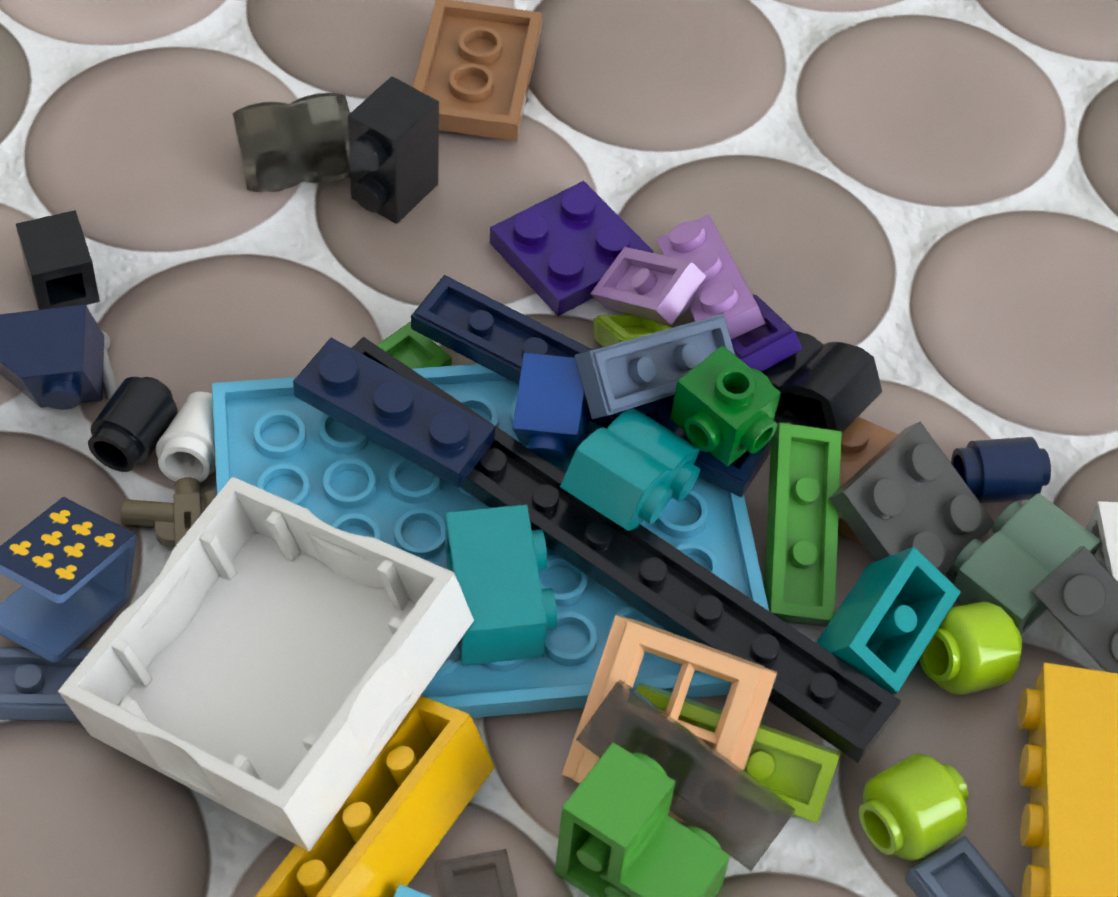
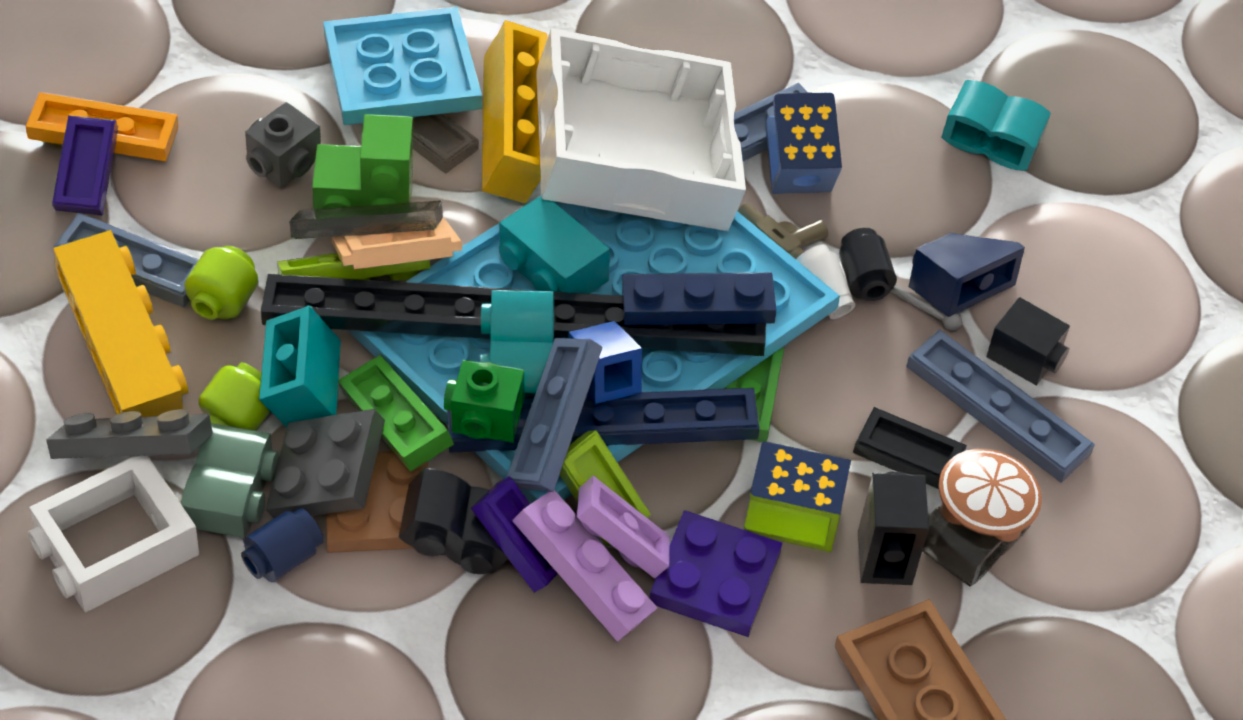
camera: 145 degrees right, 0 degrees up
(146, 247) = (1000, 405): none -> sand blue tile
(278, 121) = (989, 493): none -> dish
(278, 252) = (905, 446): none -> black tile
(442, 231) = (797, 496): none -> piece

